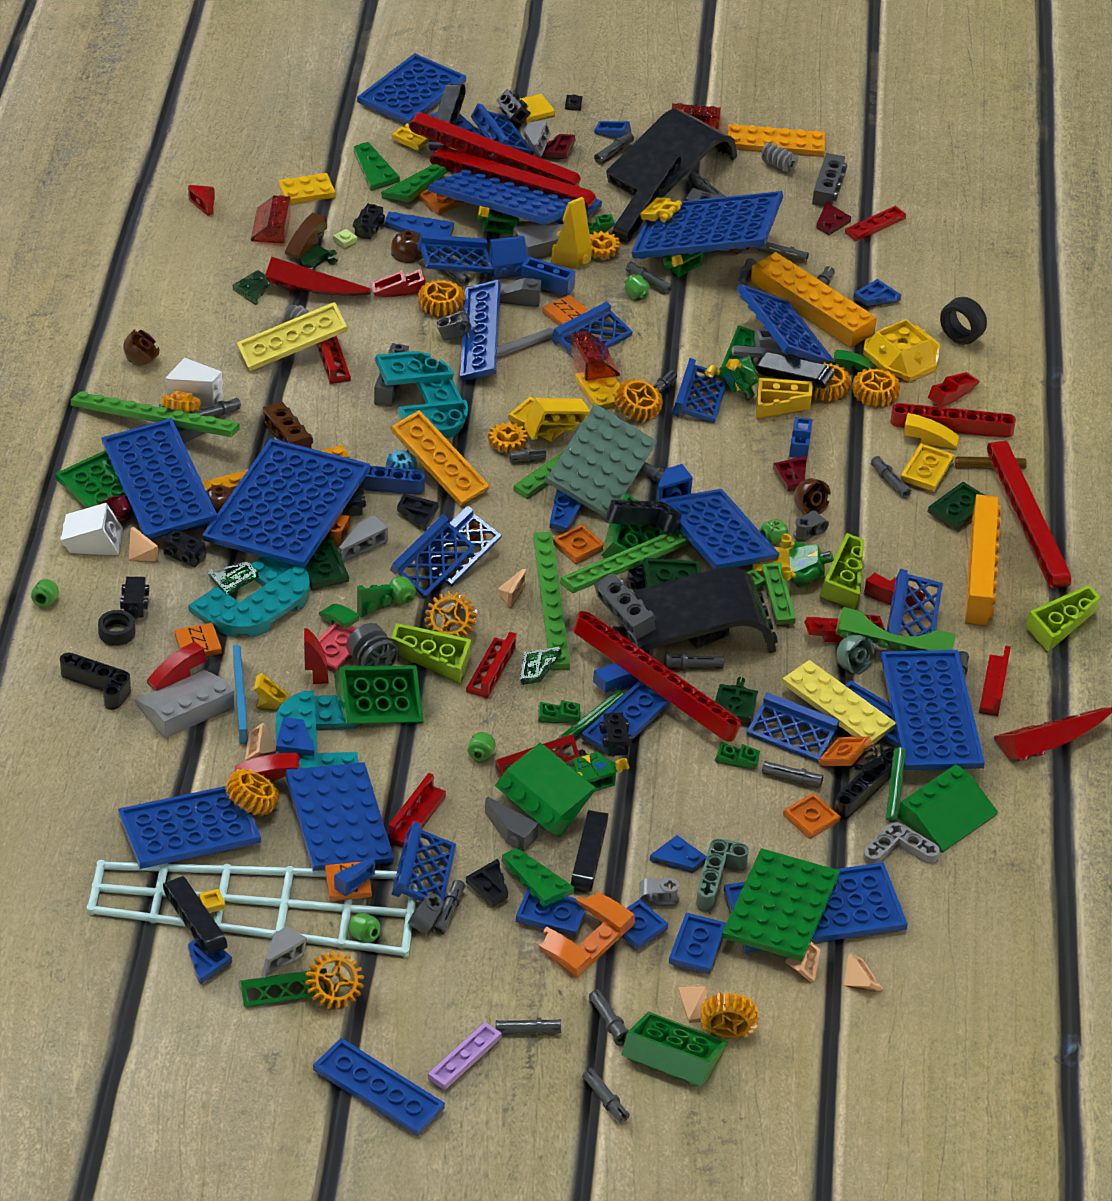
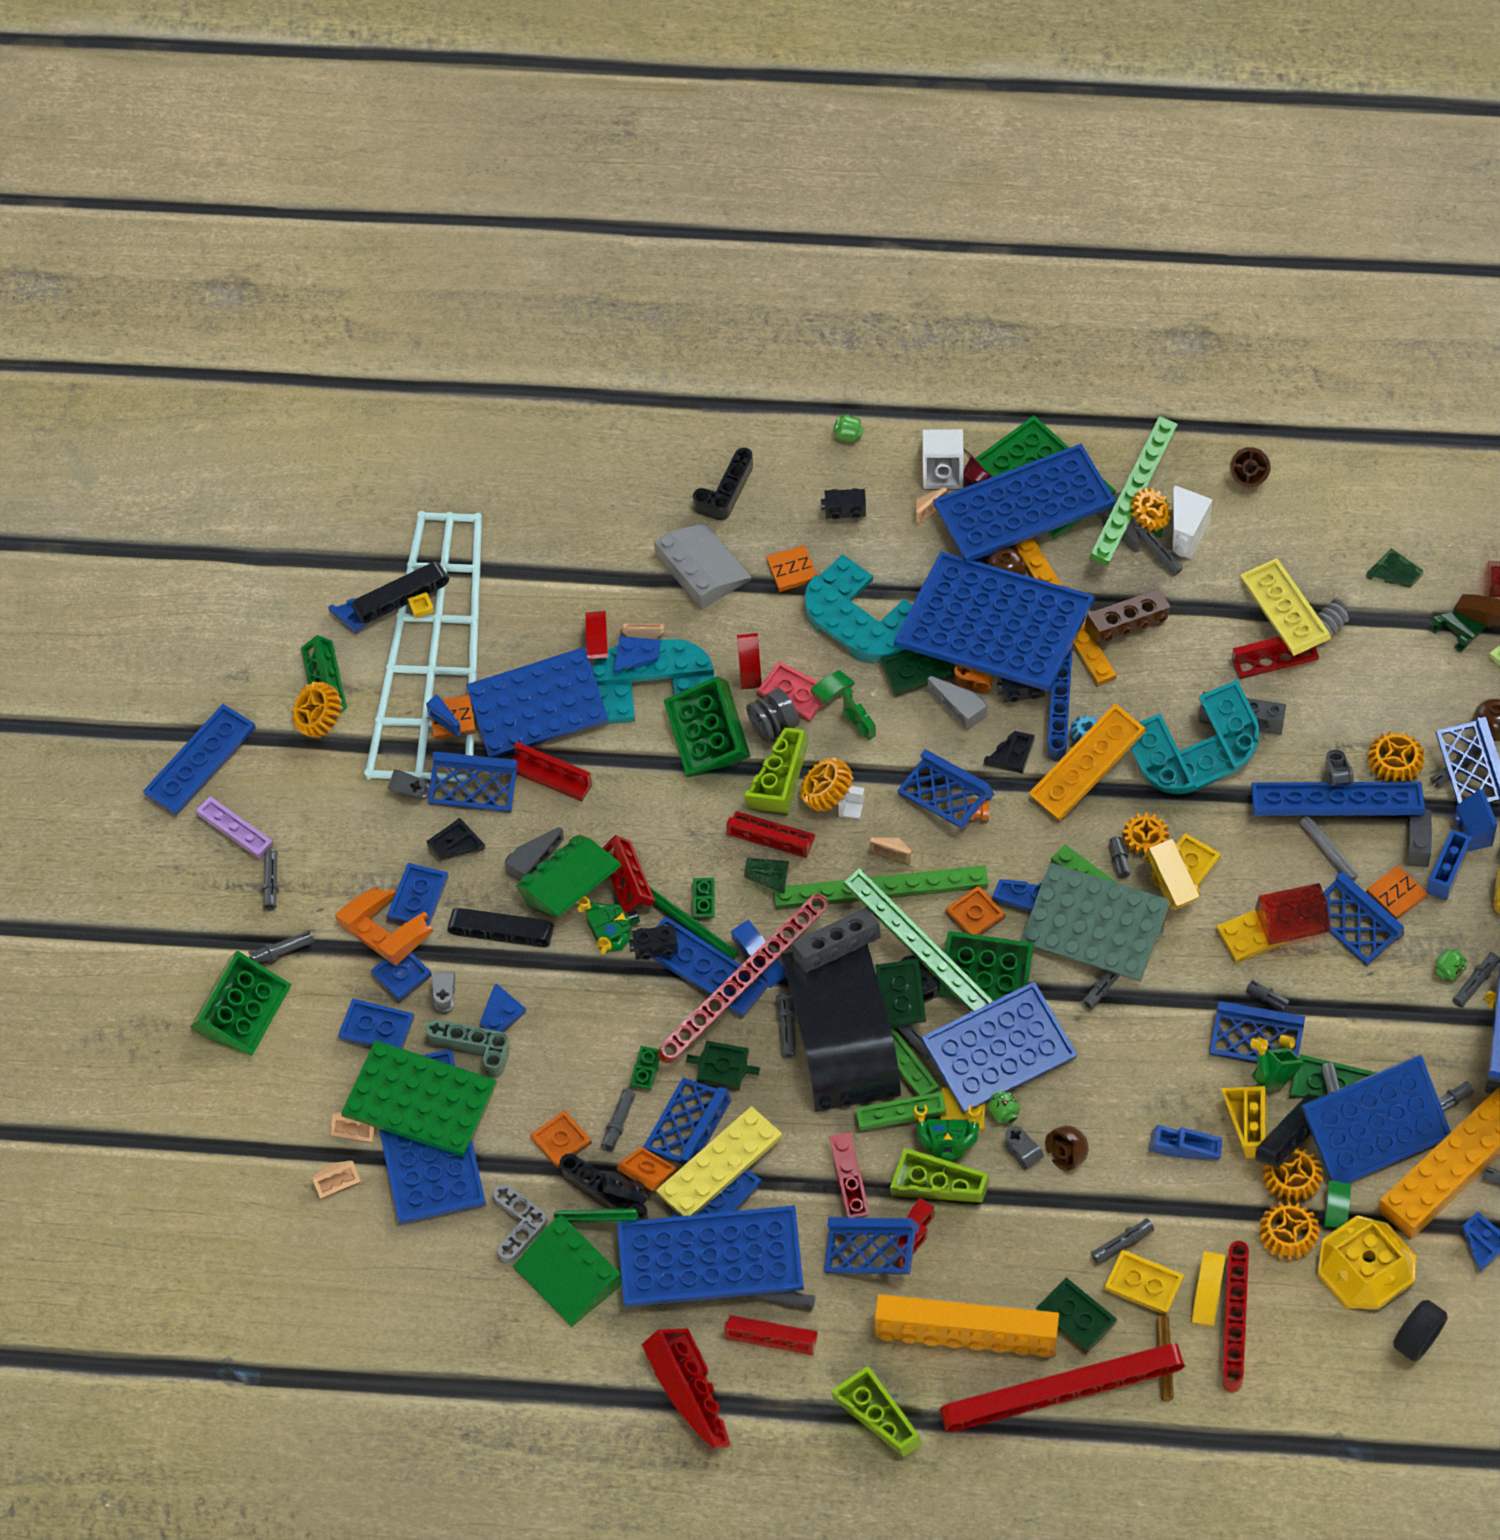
camera: 95 degrees right, 15 degrees up
(116, 637) = (803, 508): black tyre -> none
(177, 666) = (745, 551): red slope -> none
(184, 548) = (928, 541): black brick -> none
(187, 827) = (523, 580): blue plate -> none
(234, 577) = (885, 588): clear green wing -> none
(240, 696) = (711, 608): dark azure tile -> none
(252, 792) = (547, 634): light orange gear -> none
(269, 693) = (710, 633): yellow slope -> none
(285, 948) = (357, 665): light grey slope -> none
(310, 280) = (1407, 617): red wedge -> none
(364, 928) = (391, 735): bright green head -> none
(399, 284) = (1417, 714): red slope -> none
(403, 590) = (877, 742): bright green head -> none
(421, 544) = (927, 746): blue fence -> none
(451, 900) = (446, 811): dark grey pin -> none
(481, 746) = (642, 824): bright green head -> none
(538, 878) = (455, 880): green wing -> none
(610, 1101) = (176, 950): dark grey pin -> none
(628, 395) = (1214, 962): light orange gear -> none
(644, 513) = (991, 956): black beam -> none
(674, 482) = (1062, 996): blue slope -> none
(692, 1000) = (303, 1025): light nougat slope -> none
(729, 1015) = (267, 1046): light orange gear -> none
(791, 472) = (1117, 1132): dark red wing -> none
(855, 653) = (800, 1183): sand green cylinder -> none
(856, 623) = (831, 1179): bright green arch -> none
(952, 388) = (1302, 1321): red slope -> none

